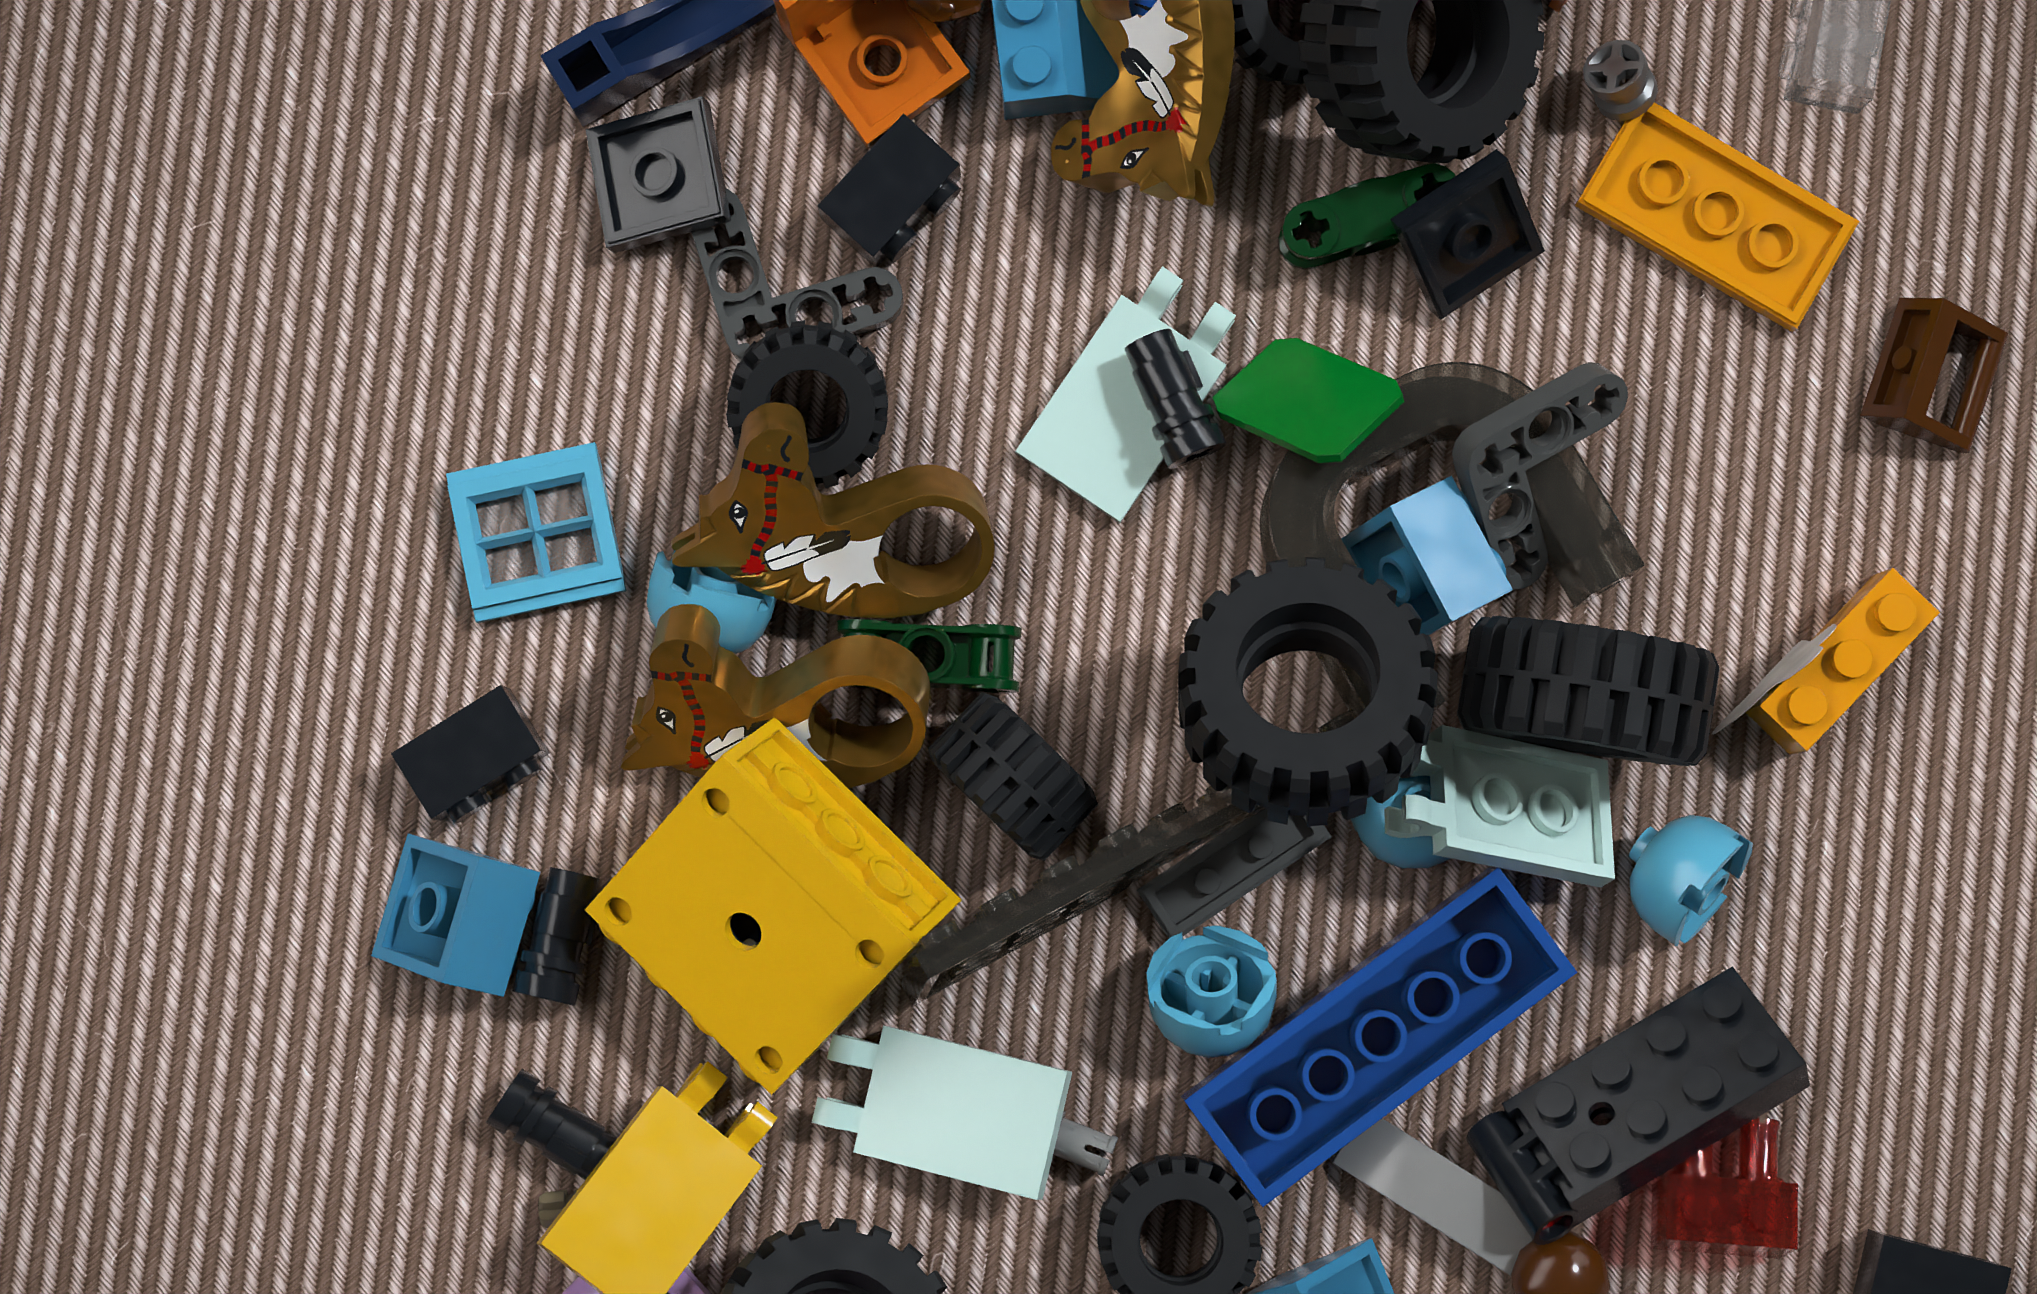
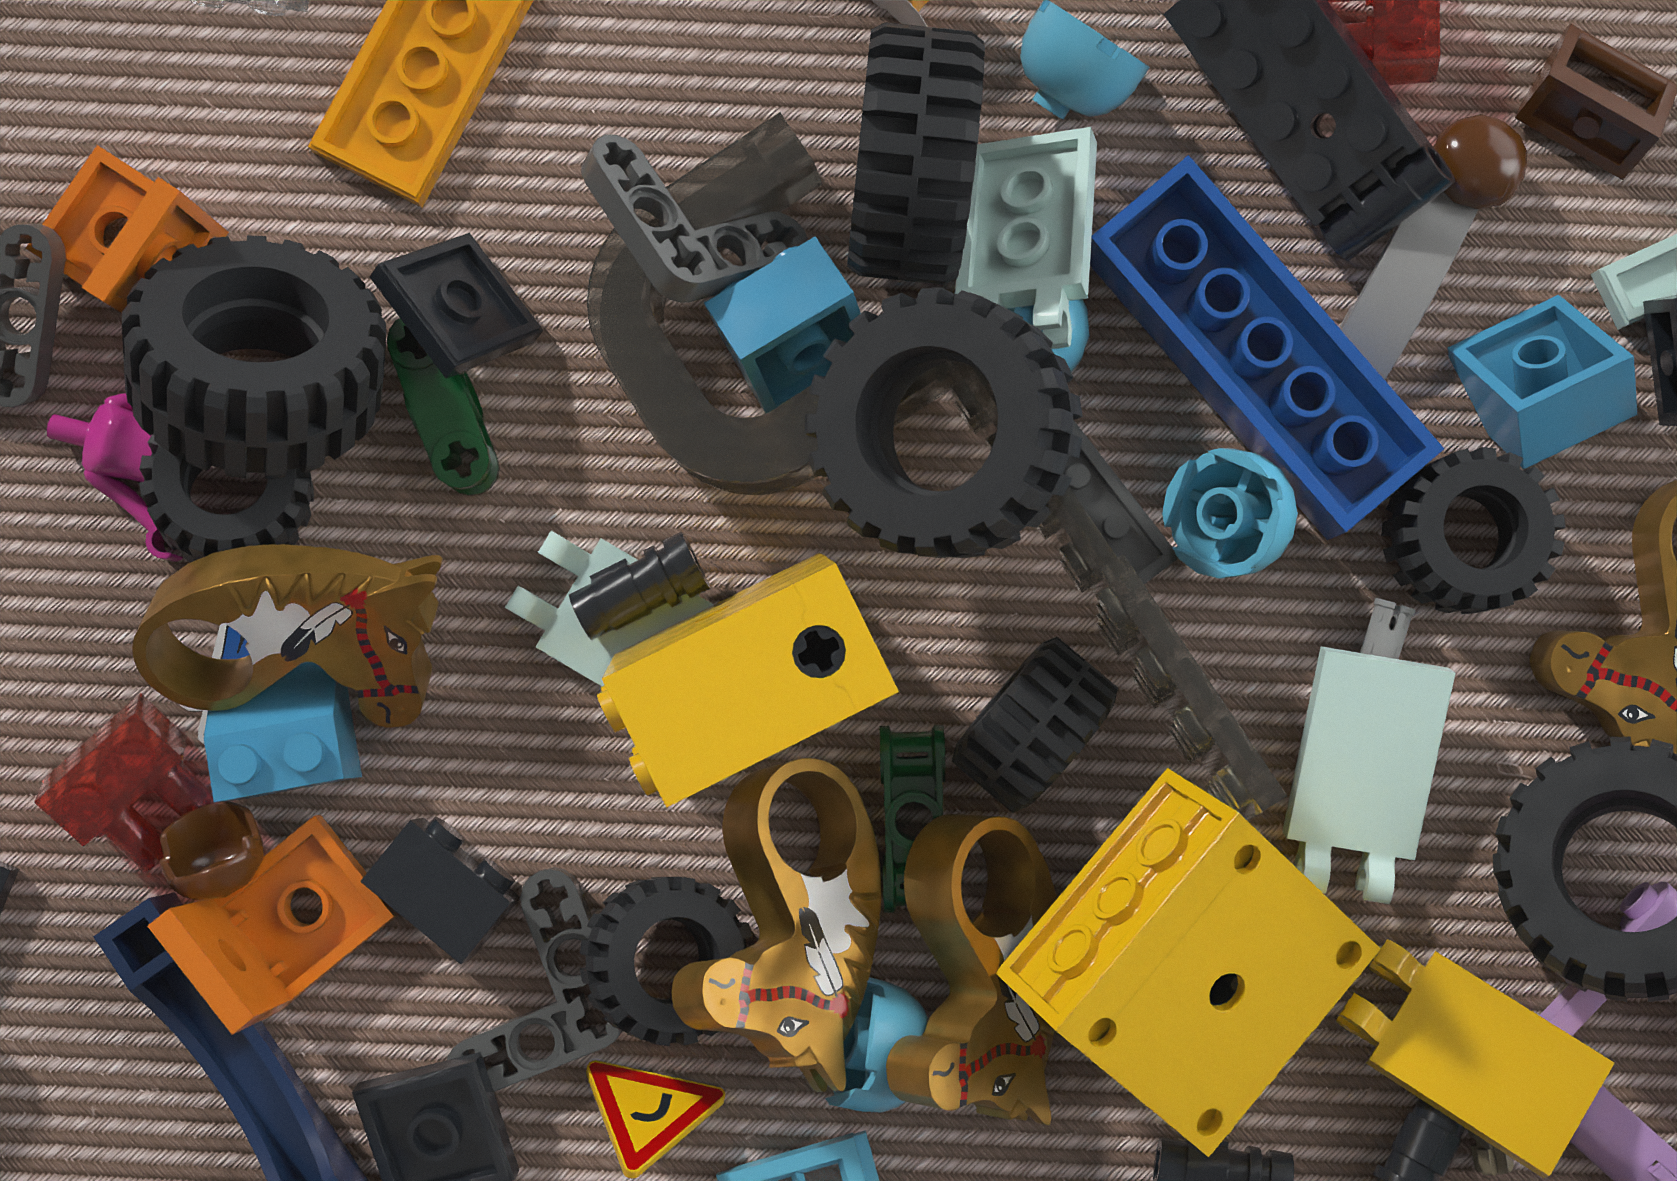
camera: 95 degrees left, 0 degrees up
(662, 379) = (648, 1111): none -> piece
(1076, 488) = (743, 681): none -> yellow gear
(1308, 400) = (634, 451): green piece -> none
(1606, 74) = (285, 179): flat silver wheel -> none

